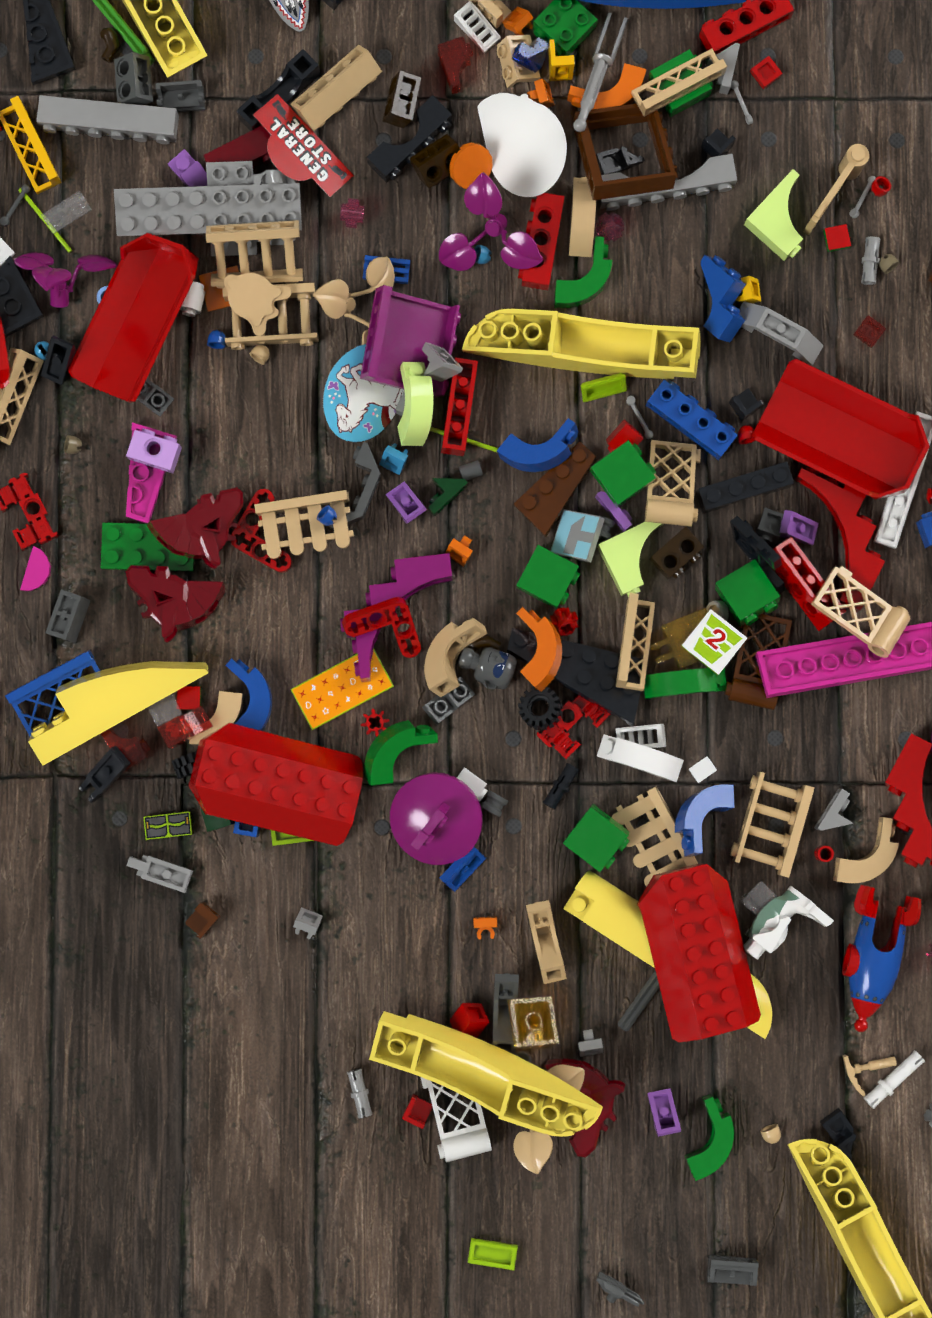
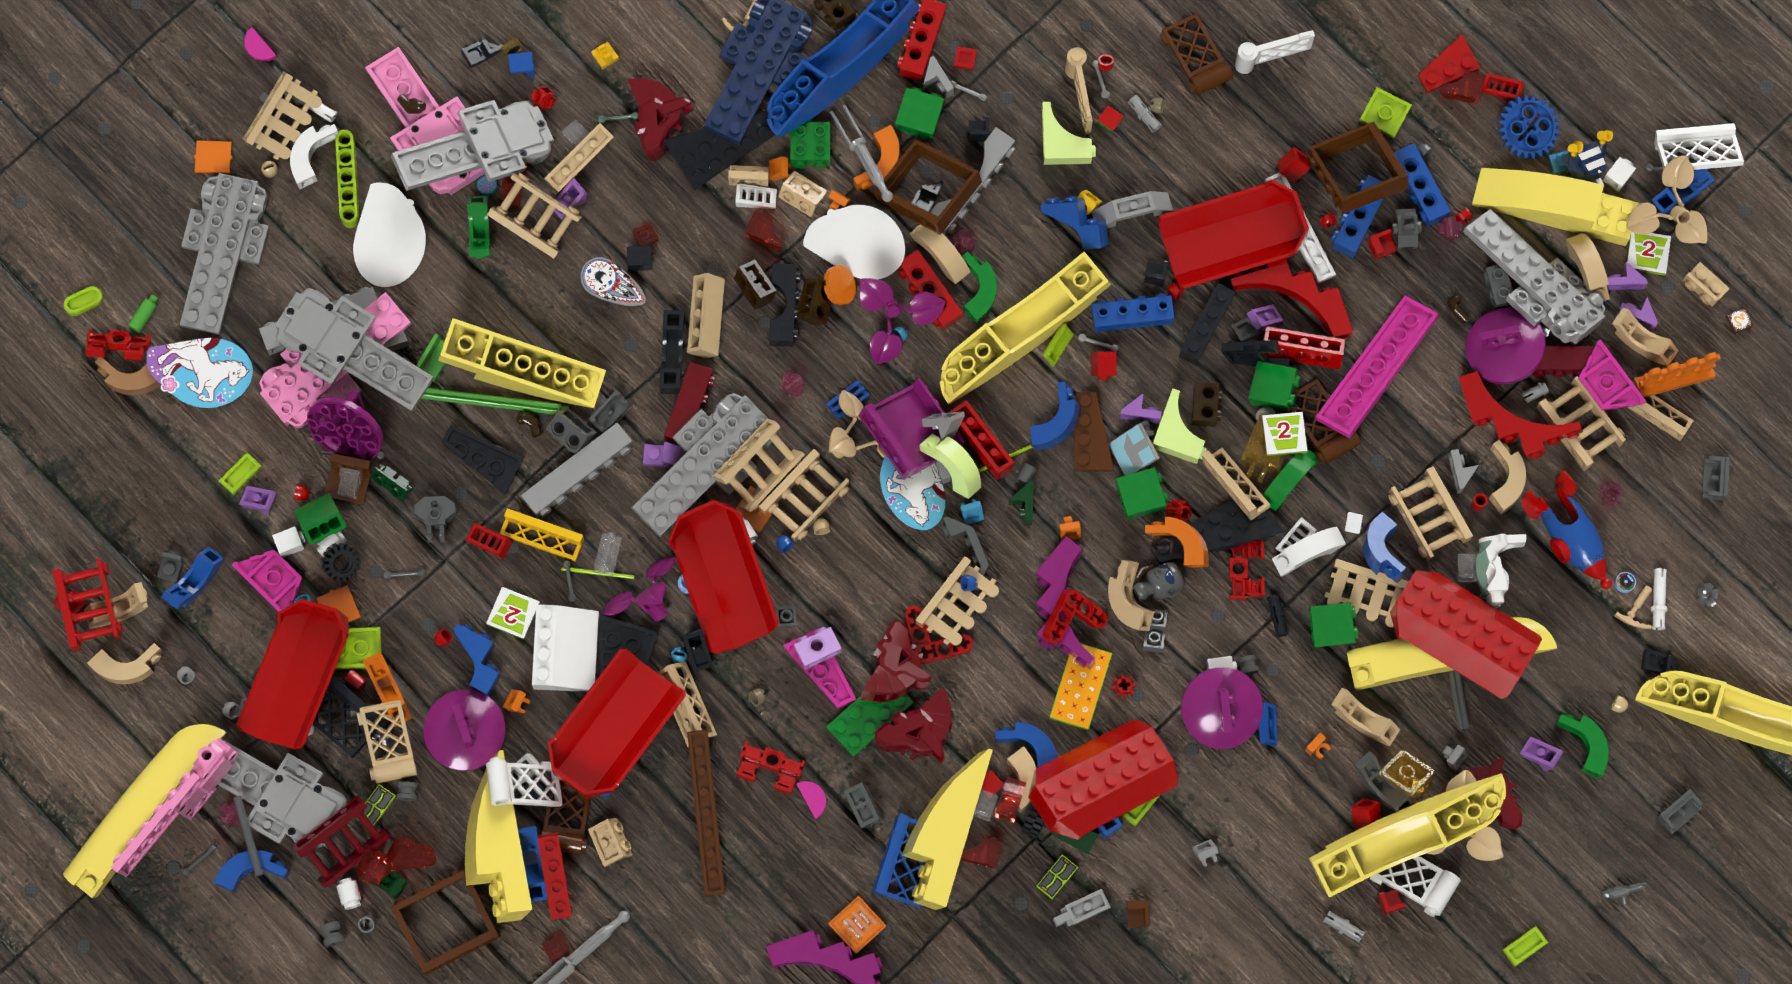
camera: 45 degrees left, 10 degrees down
(105, 773) = (987, 878): black hinge -> none
(254, 298) = (786, 494): tan tile -> none
(298, 150) = (722, 375): sticker -> none
(389, 744) = (1147, 691): green arch -> none
(406, 502) = (1007, 531): medium lavender slope -> none
(531, 56) = (810, 182): clear blue piece -> none
(549, 717) = (1225, 587): black tyre -> none
(560, 67) = (834, 174): yellow panel -> none
(623, 473) = (1126, 383): green brick -> none
(669, 507) = (1177, 377): tan piece -> none
(681, 87) = (927, 113): tan fence -> none
(869, 331) = (1187, 157): clear red tile -> none
(879, 1037) = (1625, 582): none -> tile
(889, 624) = (1379, 325): tan piece -> none

